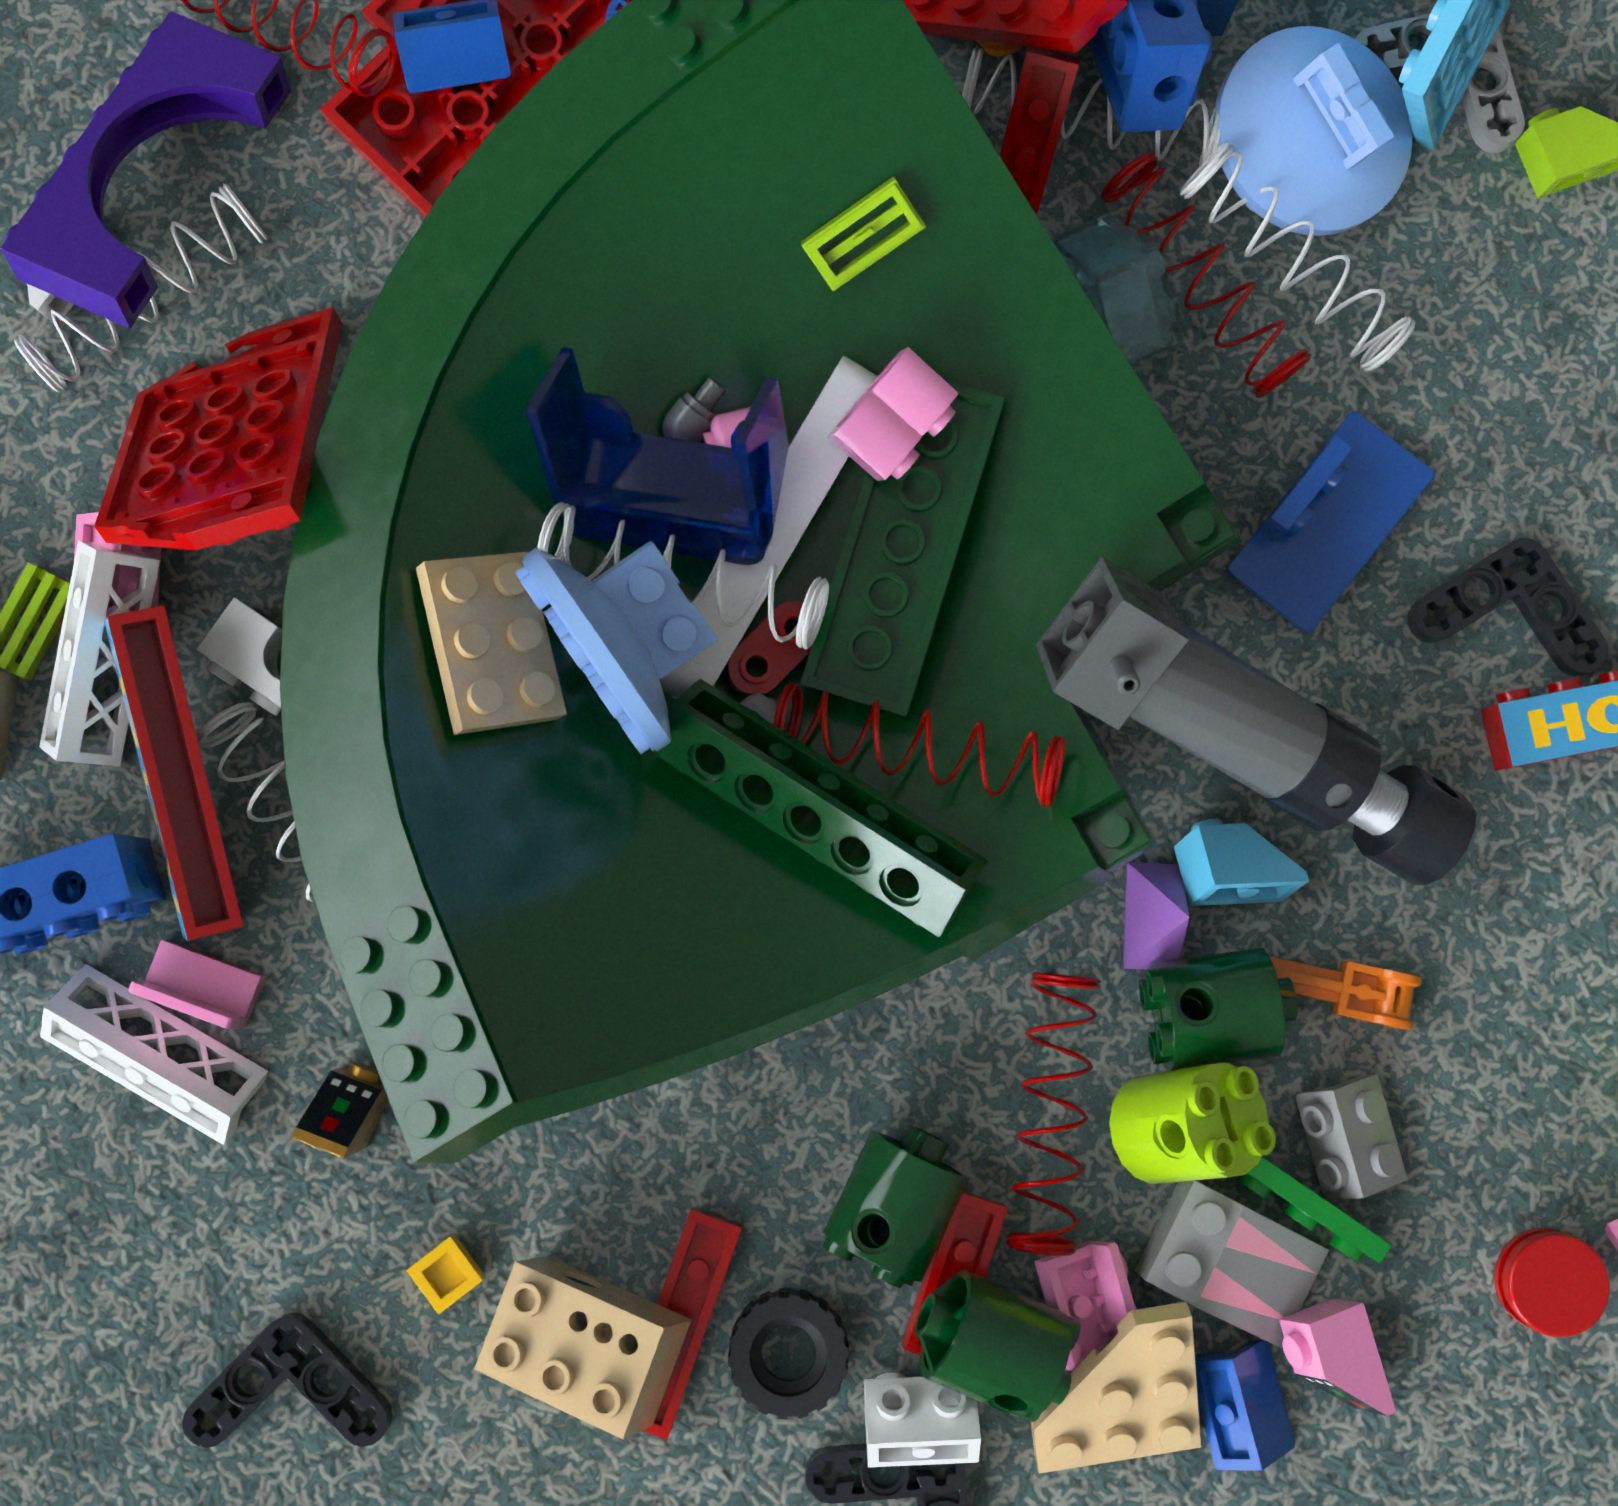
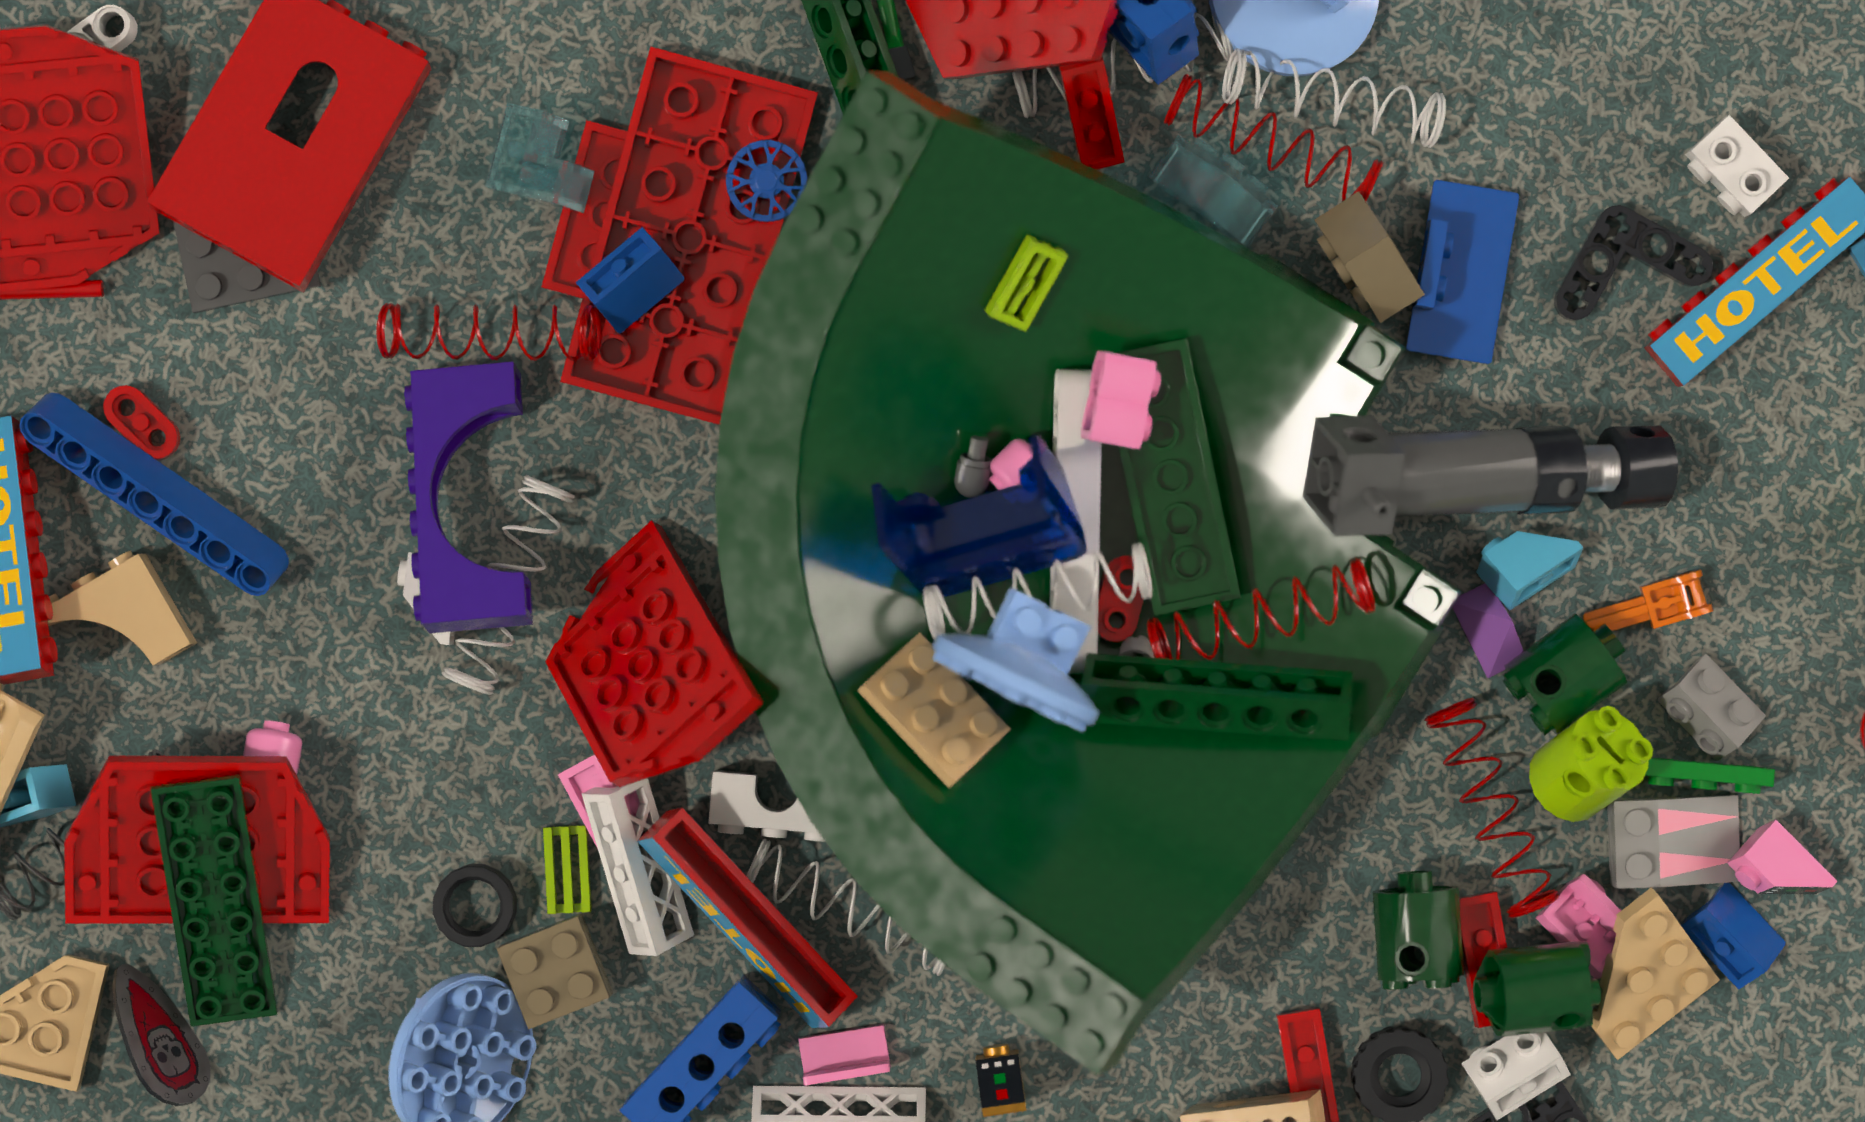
camera: 30 degrees left, 5 degrees up
(1246, 438) = (1367, 258): none -> dark tan brick

